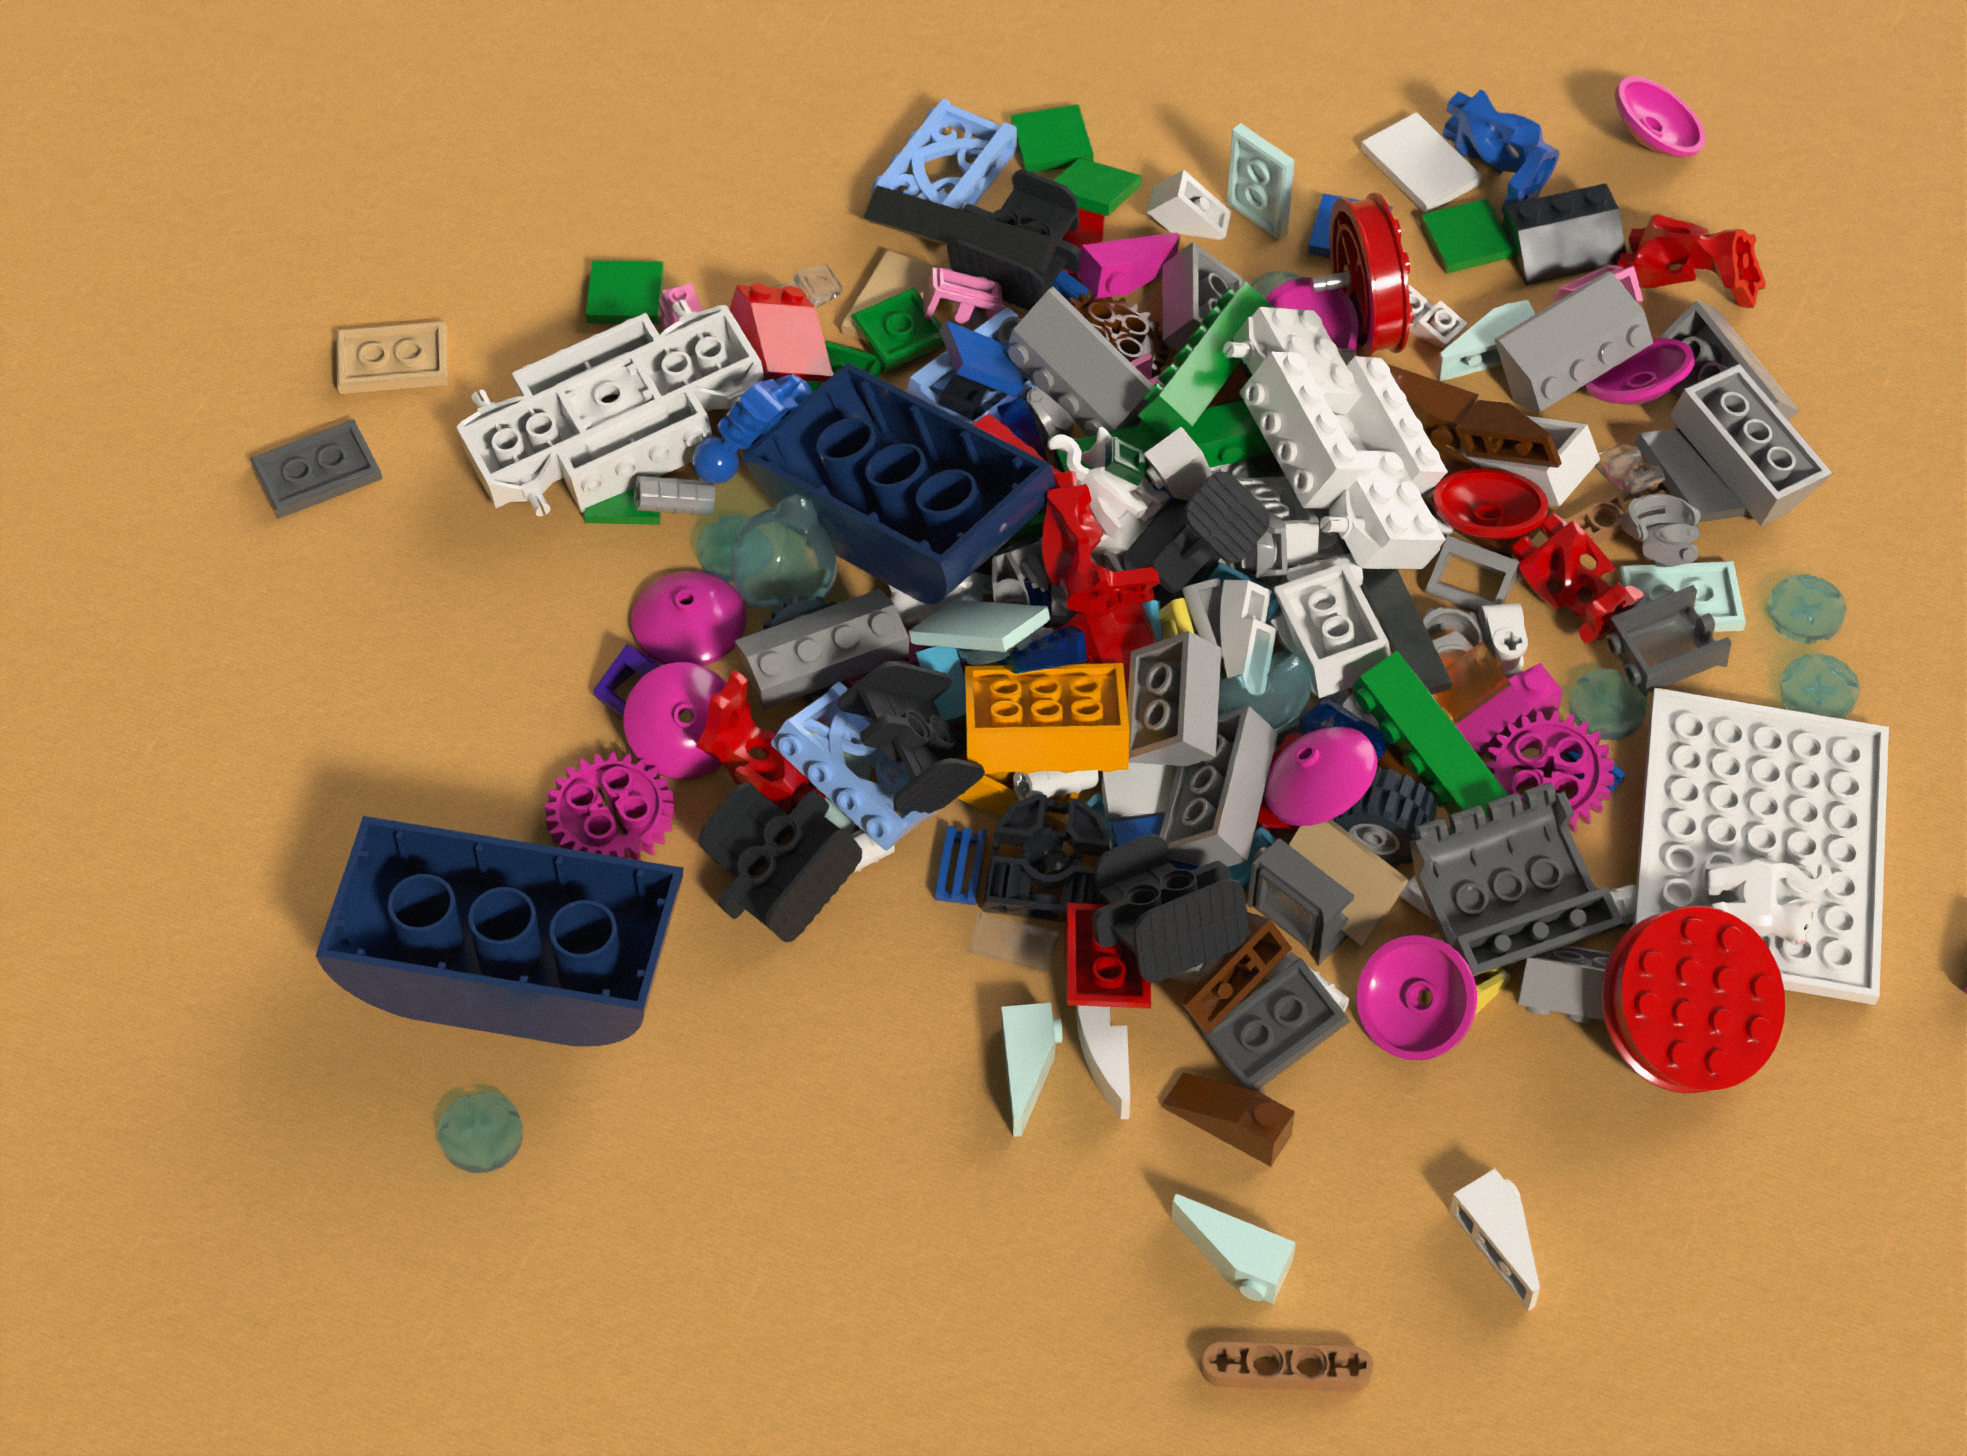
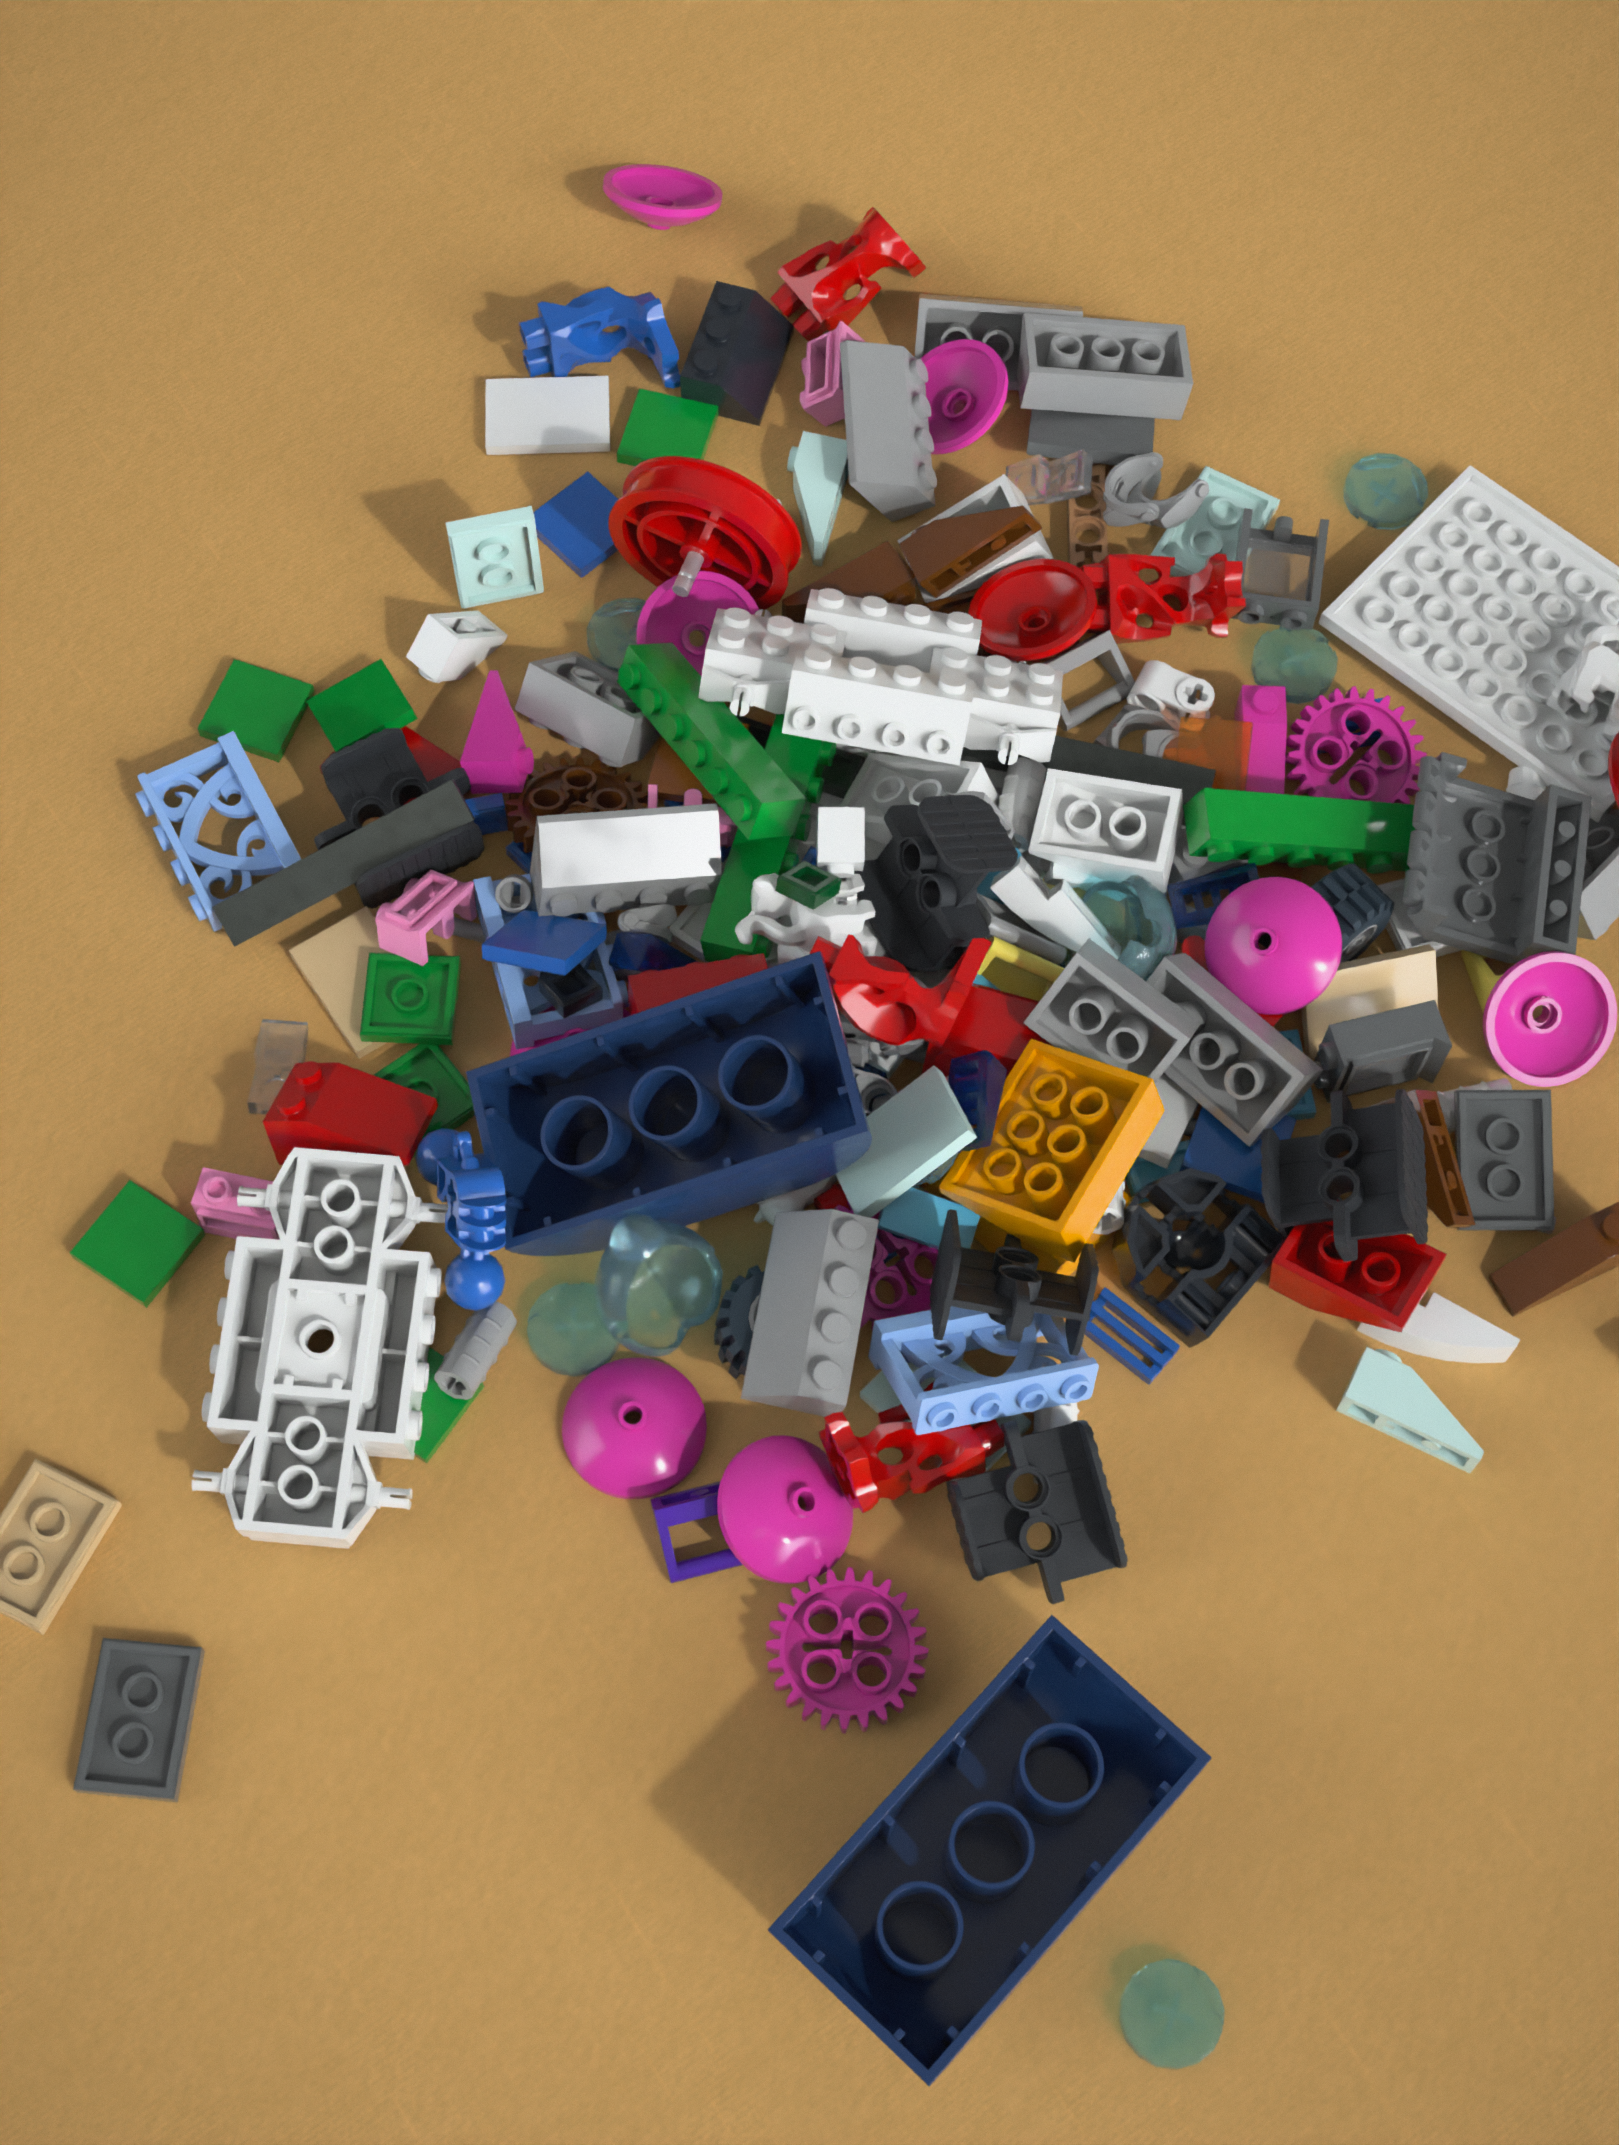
camera: 60 degrees left, 10 degrees up
(1013, 941) = (1246, 1338): clear slope -> none
(1806, 608) = (1292, 444): clear light blue tile -> none

